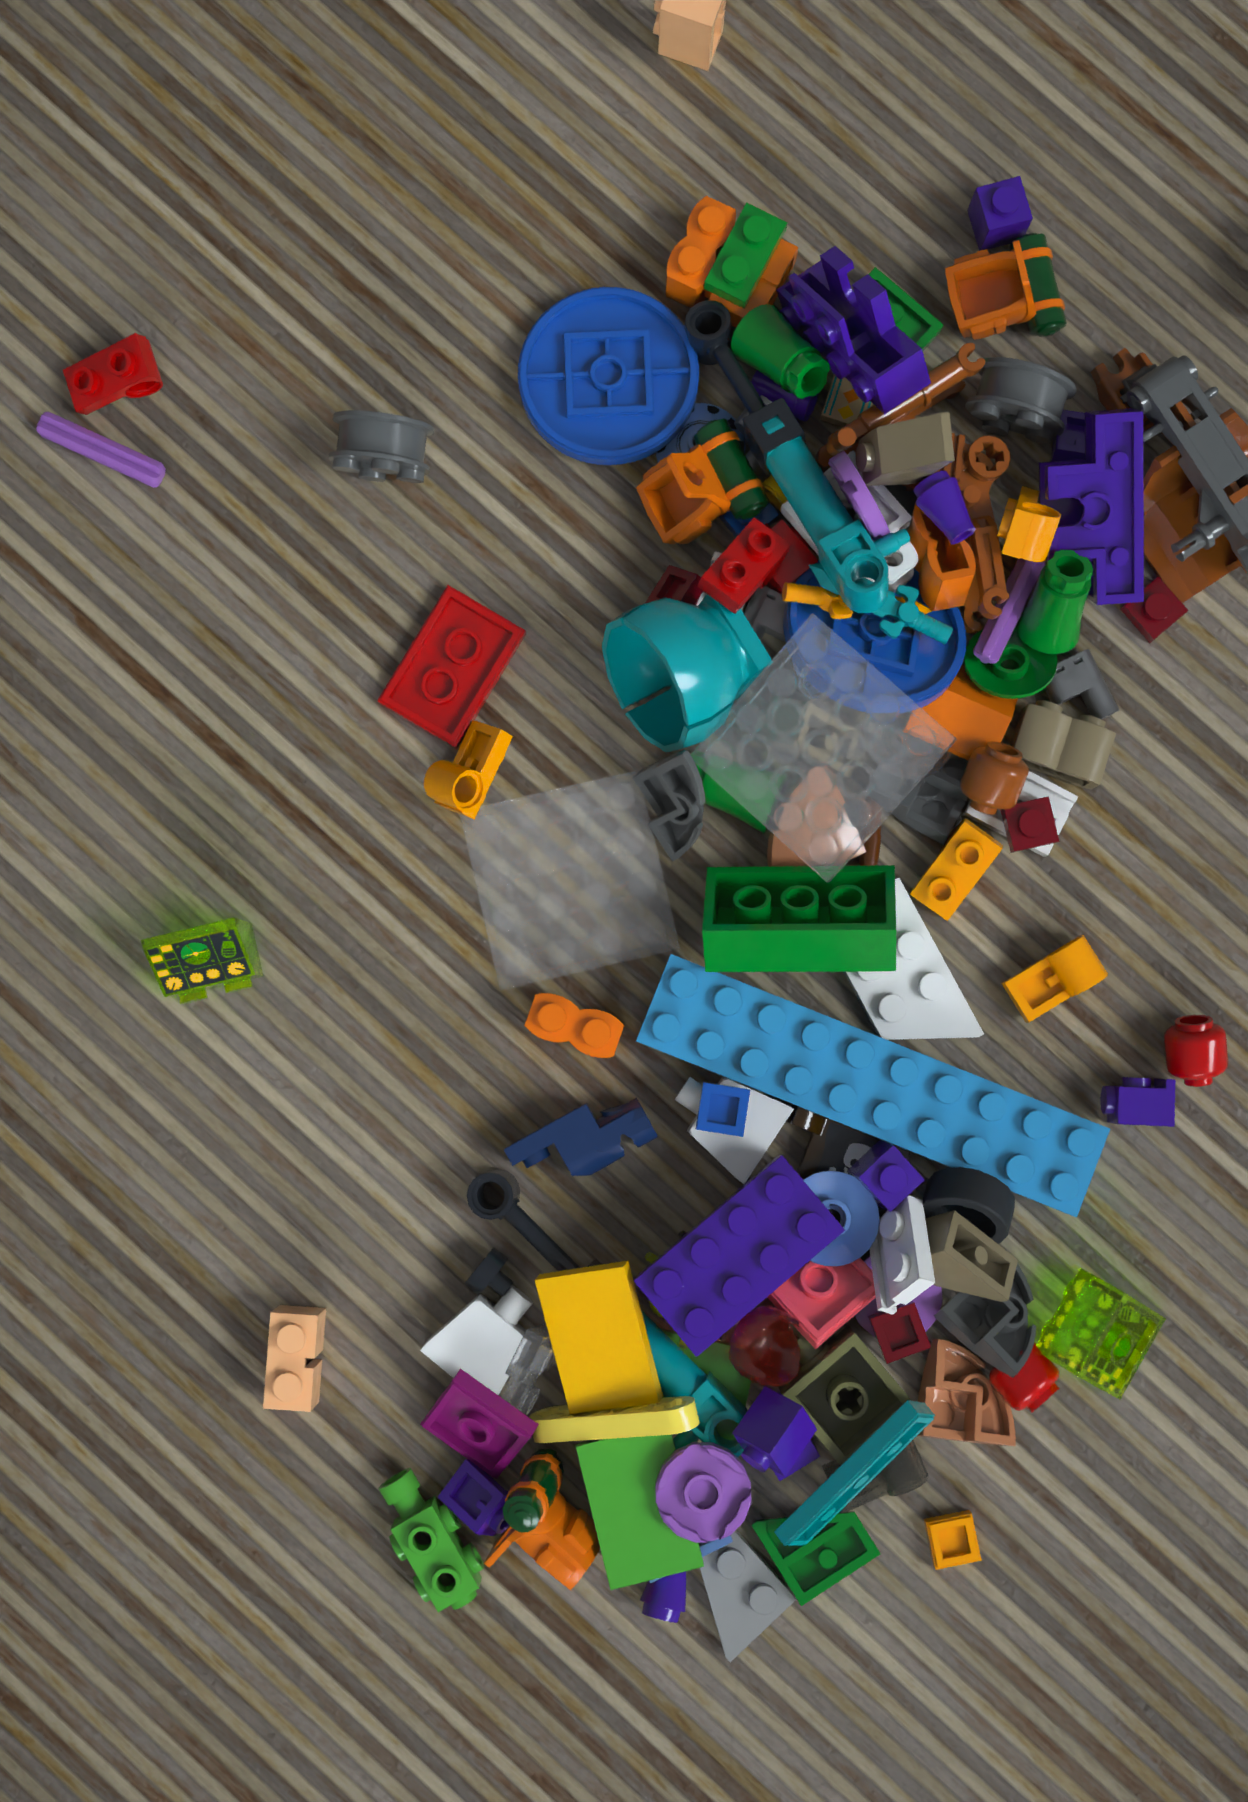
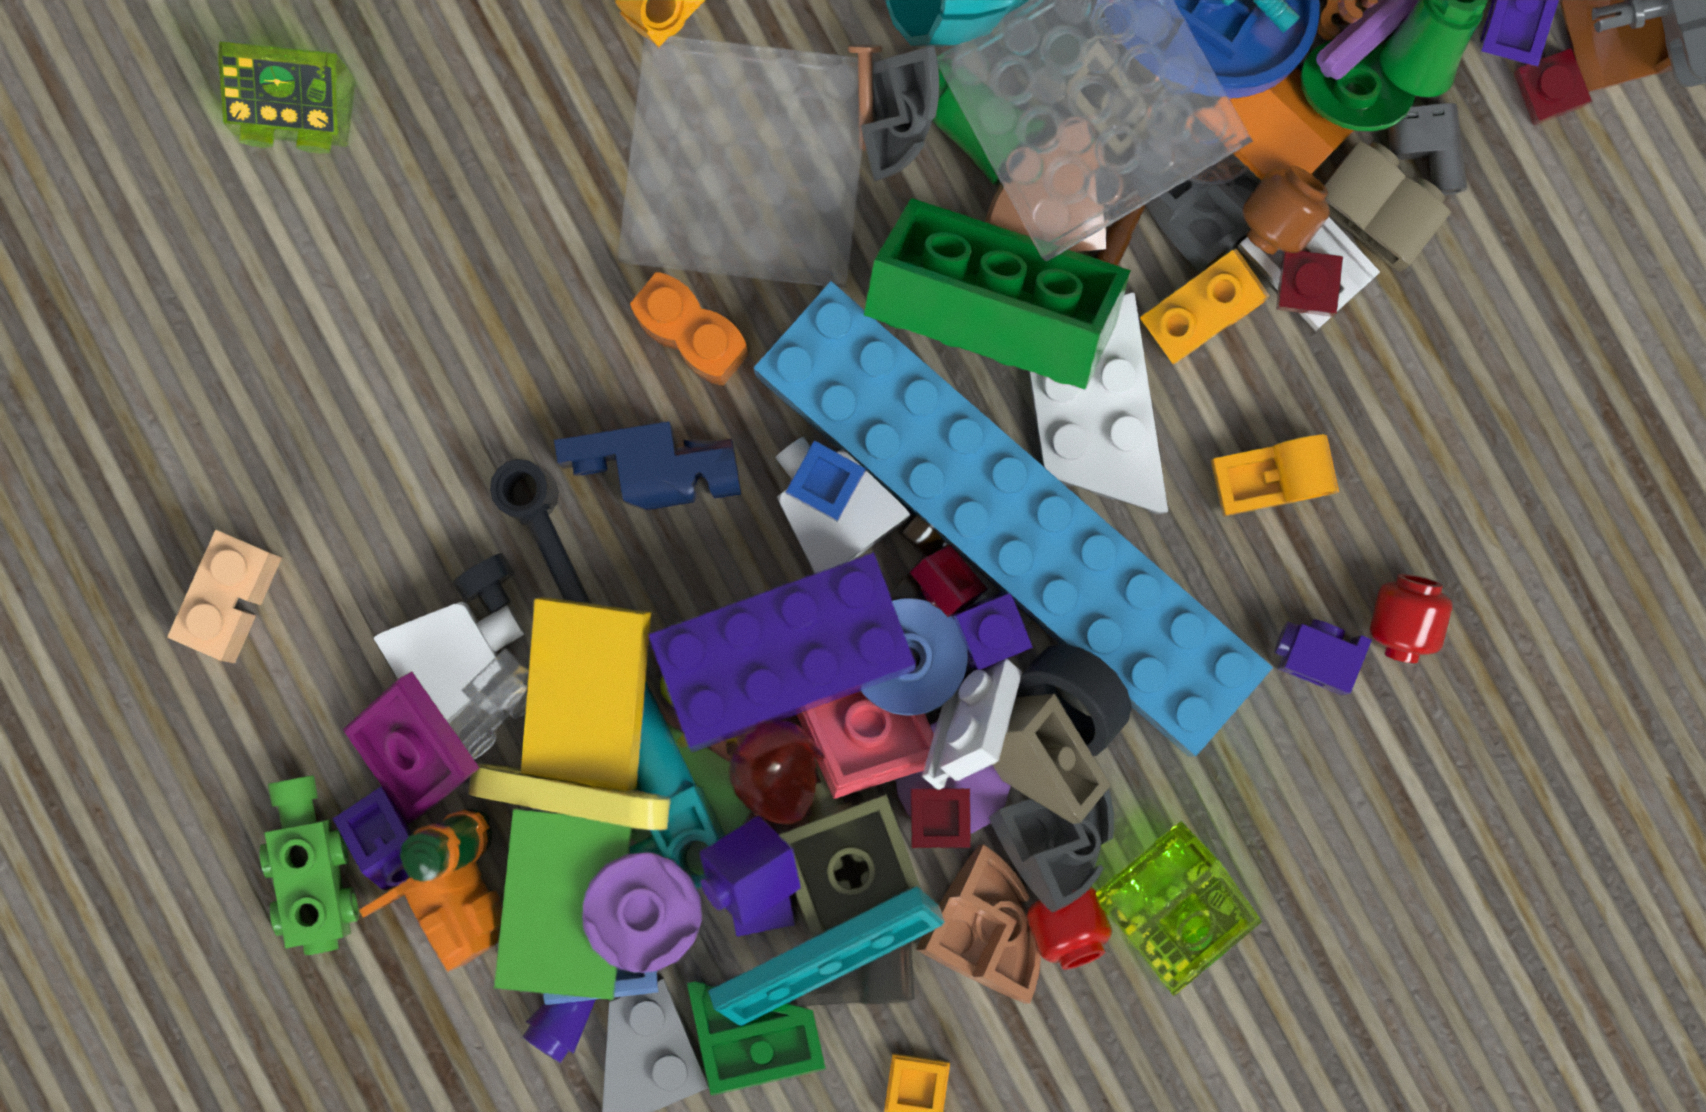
camera: 20 degrees right, 0 degrees up
(631, 768) = (865, 78): none -> nougat pin
(841, 1150) = (948, 581): none -> dark red plate

